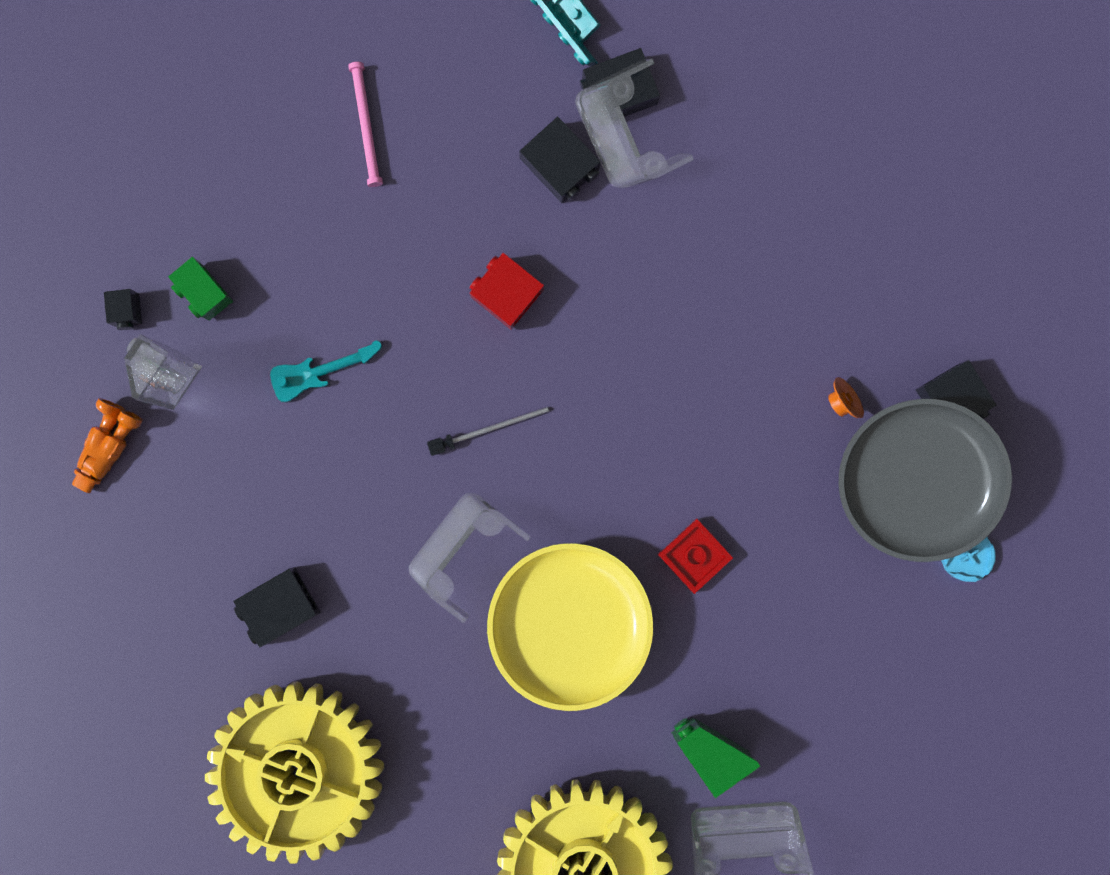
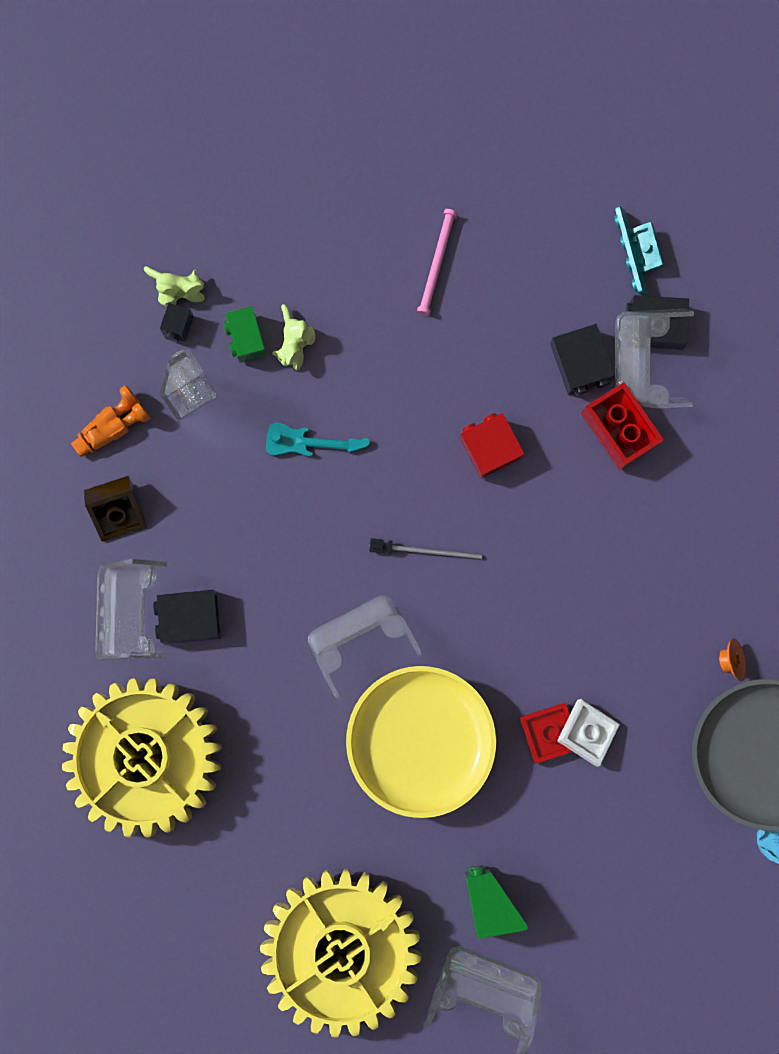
camera: 30 degrees right, 5 degrees down
(102, 273) = (174, 287): none -> yellowish green animal
(148, 531) = (114, 508): none -> dark brown slope
(207, 632) = (121, 610): none -> clear windscreen
(255, 269) = (296, 336): none -> yellowish green animal
(630, 211) = (621, 426): none -> red slope
(733, 538) = (588, 732): none -> white tile

